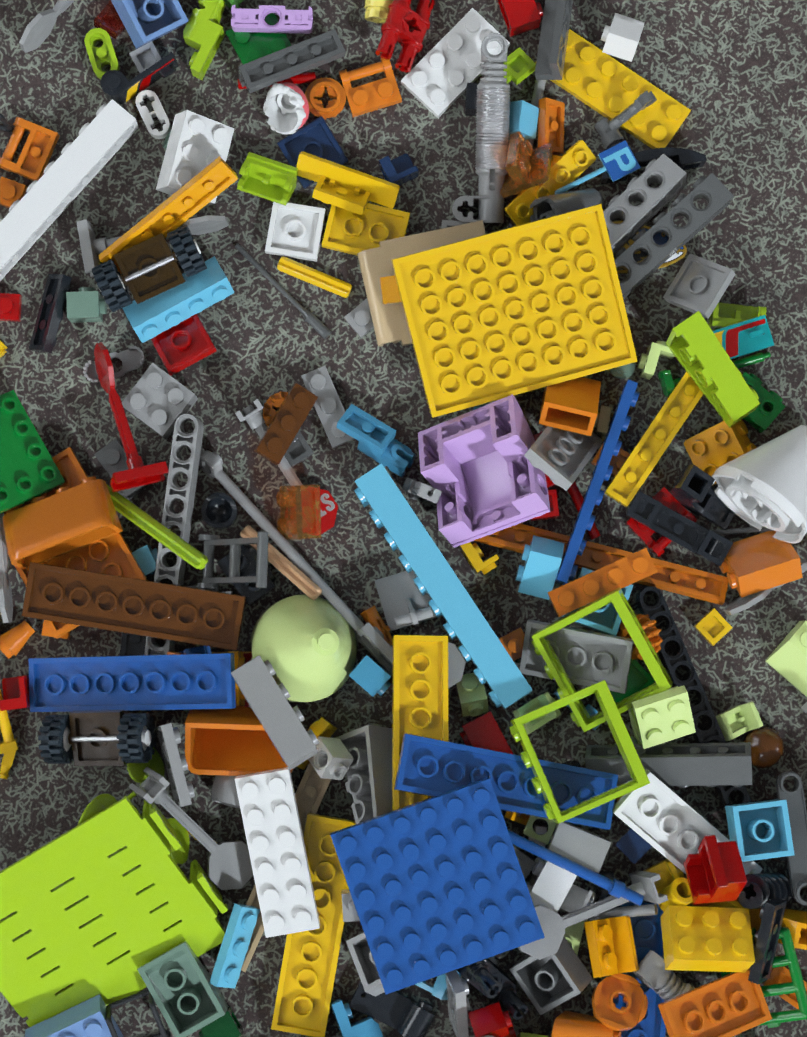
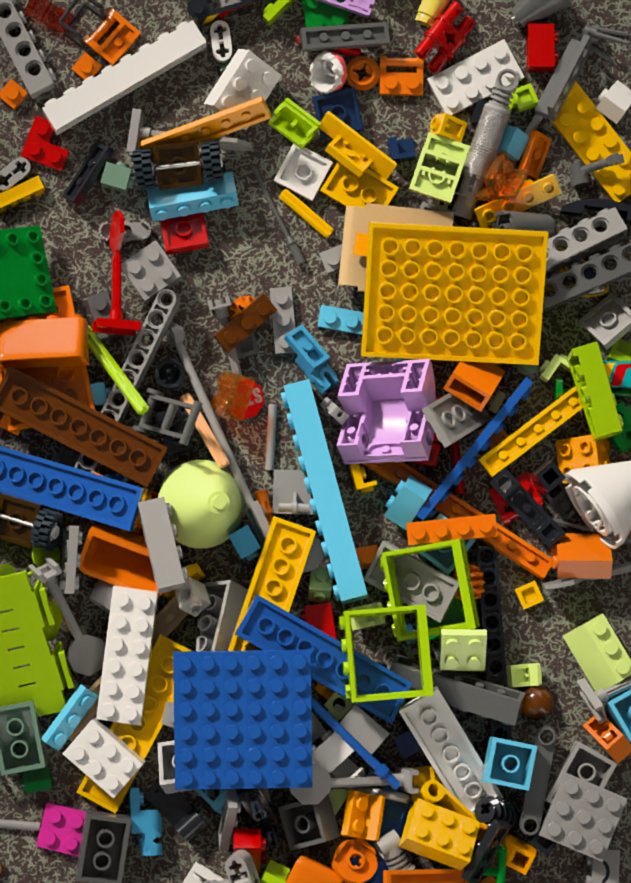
camera: 20 degrees right, 0 degrees up
(290, 980) = (104, 757): none -> white brick
(359, 544) = (271, 434): none -> light grey bar
(394, 384) = (340, 320): none -> medium azure plate
(442, 127) = (448, 127): none -> yellow bracket
(449, 175) = (439, 168): none -> yellowish green bracket
(617, 162) = (576, 201): piece -> none
(715, 872) = (463, 784): red plate -> none

